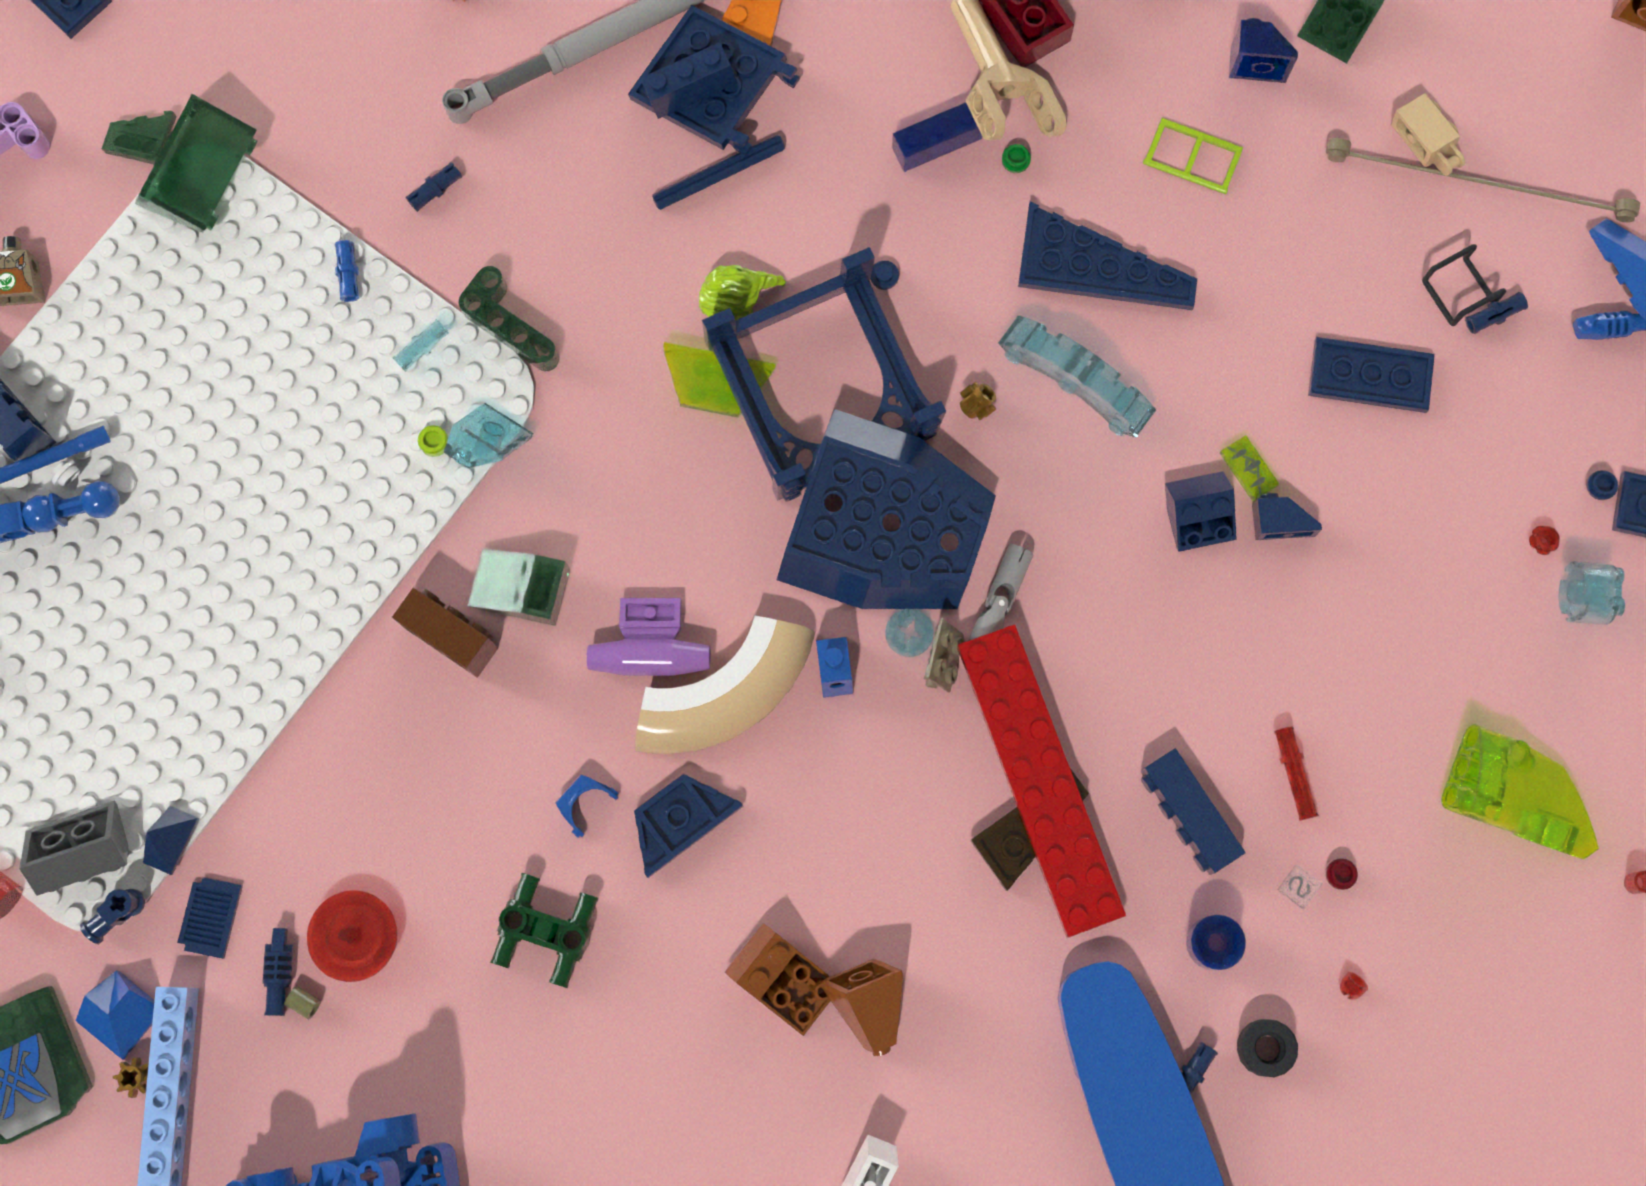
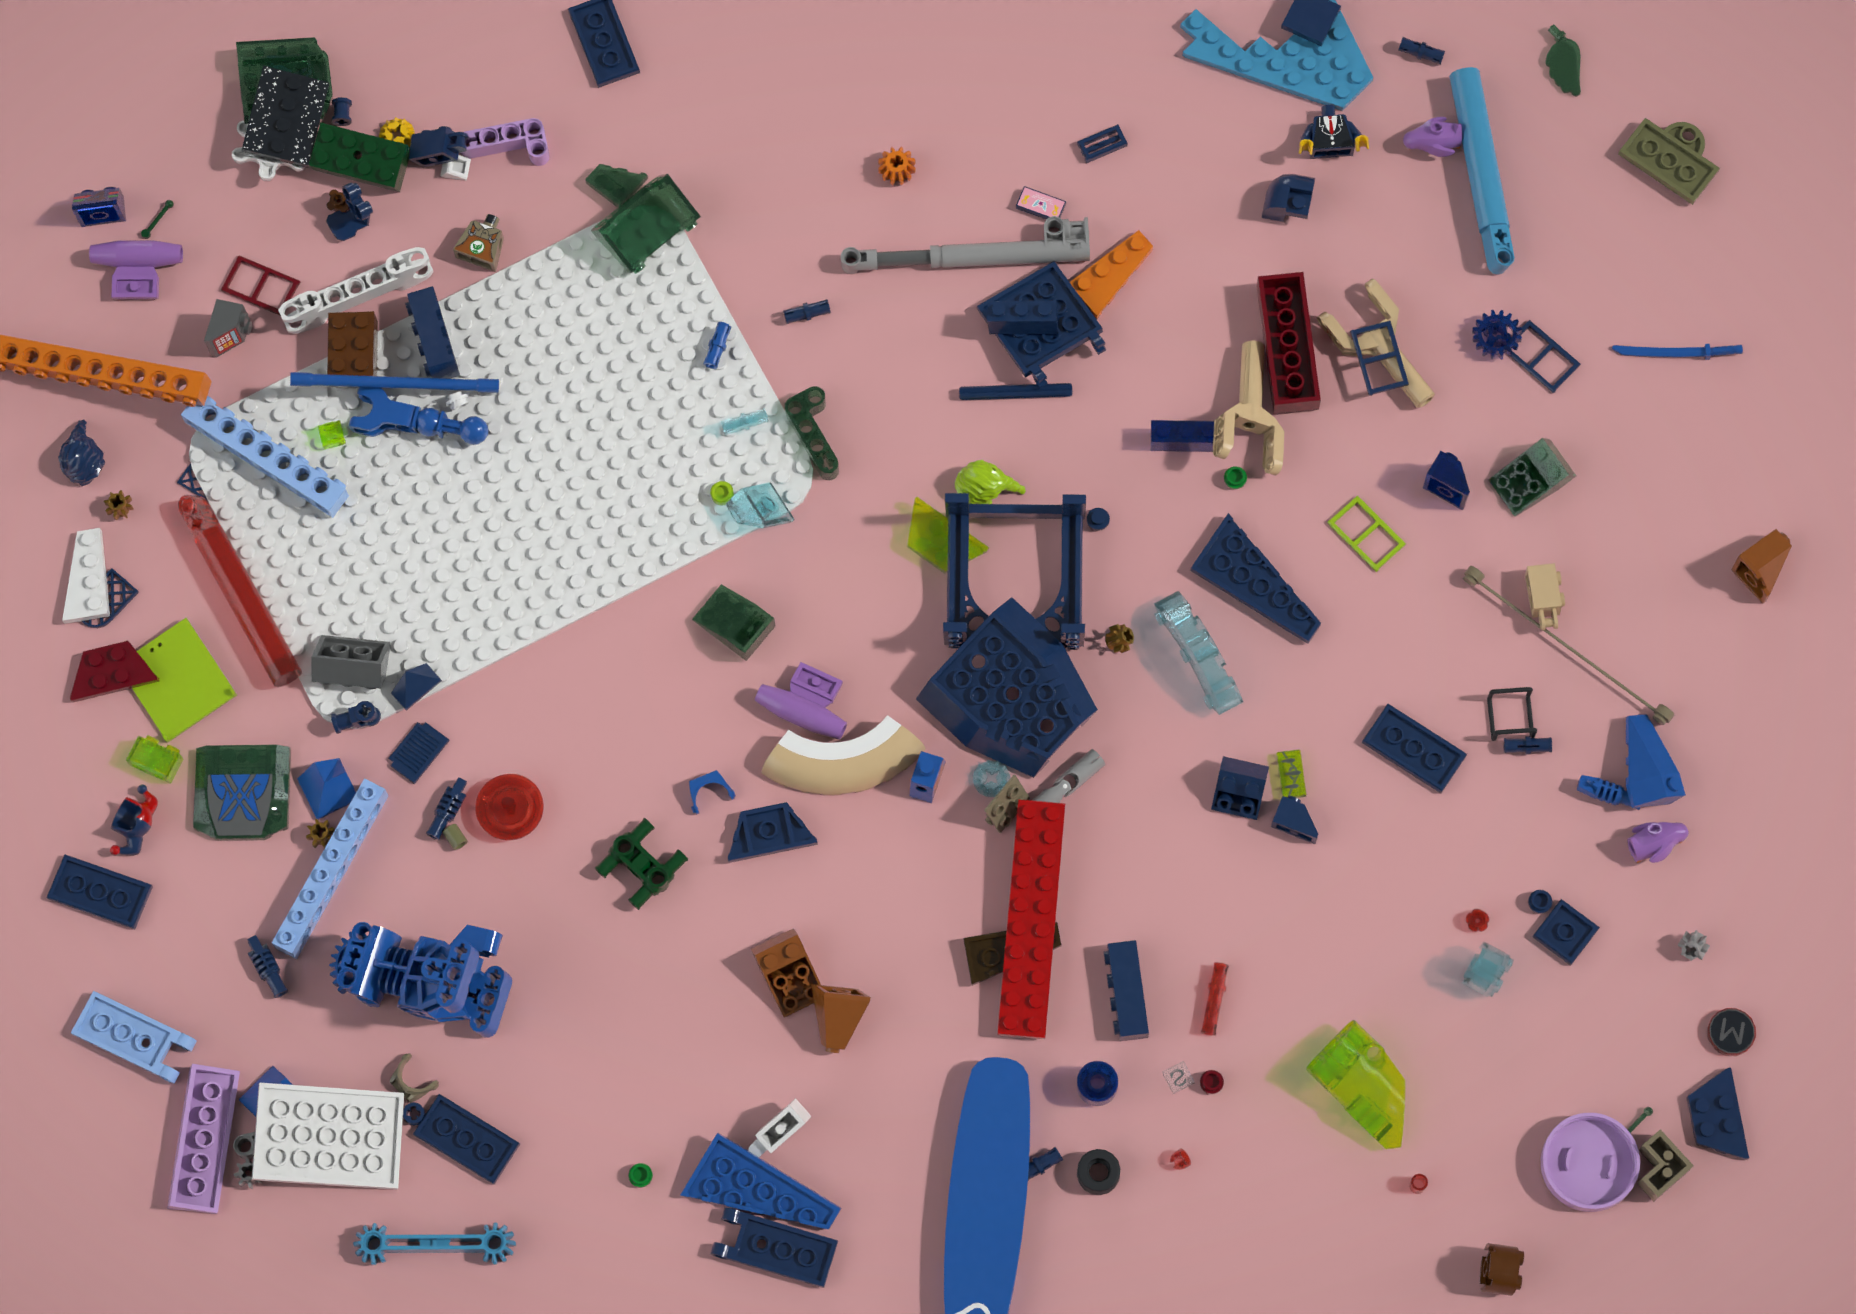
camera: 25 degrees right, 5 degrees down
(446, 630) = (669, 629): reddish brown brick -> none

